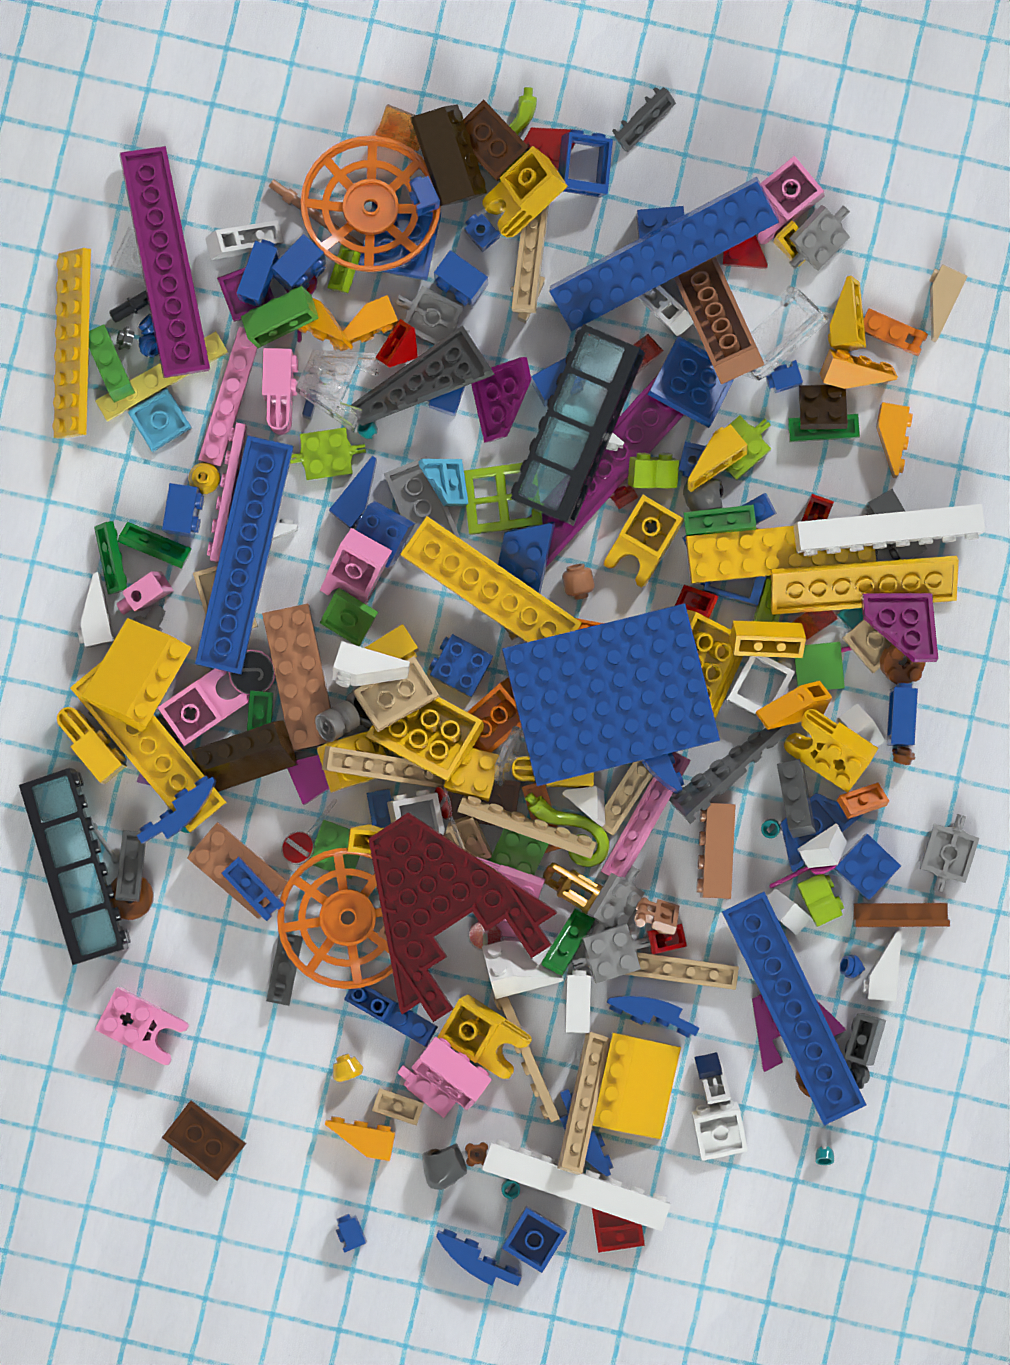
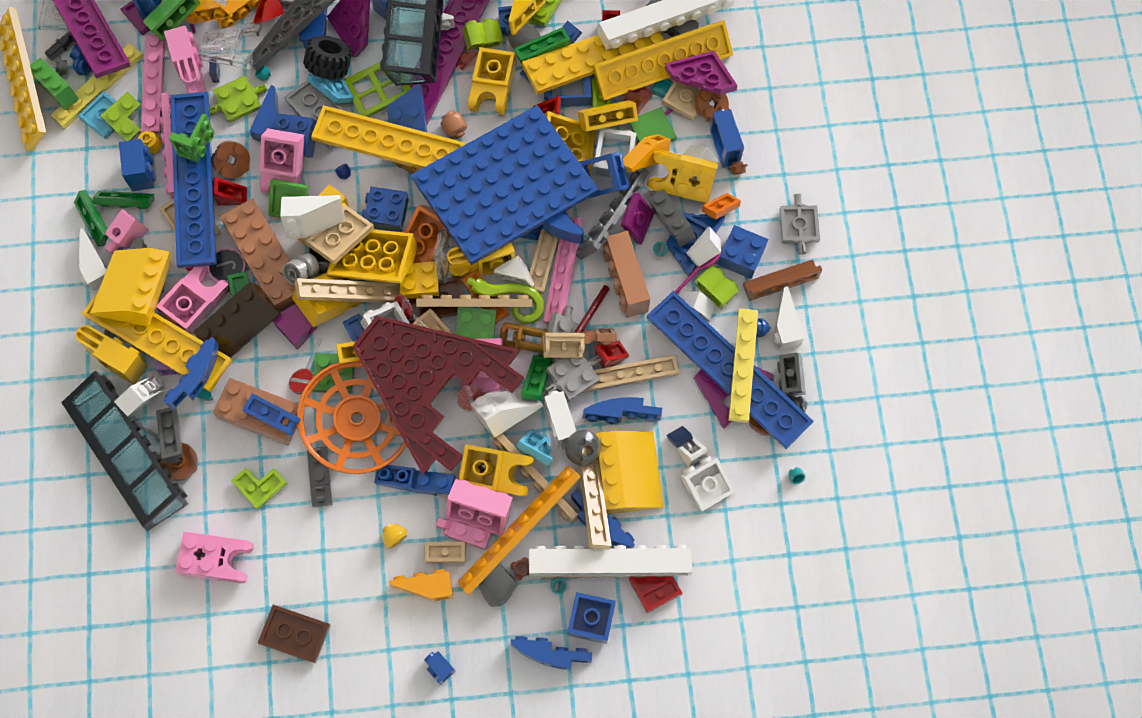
camera: 25 degrees left, 15 degrees down
(111, 810) = (140, 394): none -> white slope
(176, 433) = (118, 117): none -> lime plate
(212, 964) = (259, 491): none -> lime plate
(262, 526) = (195, 146): none -> bright green bracket
(282, 580) = (228, 193): none -> red slope
(299, 550) = (222, 154): none -> dark orange plate
(426, 597) = (343, 171): none -> clear blue hinge
(442, 453) = (327, 57): none -> black tyre
(487, 1114) = (518, 529): none -> light orange plate
(540, 1024) = (537, 446): none -> medium azure wing
(589, 1042) = (575, 446): none -> dark grey piece
(610, 921) = (563, 345): none -> tan hinge
(657, 883) = (592, 309): none -> dark red bar
(750, 713) = (616, 170): none -> blue window
(756, 784) = (637, 218): none -> magenta tile
(811, 1012) = (743, 365): none -> light yellow plate

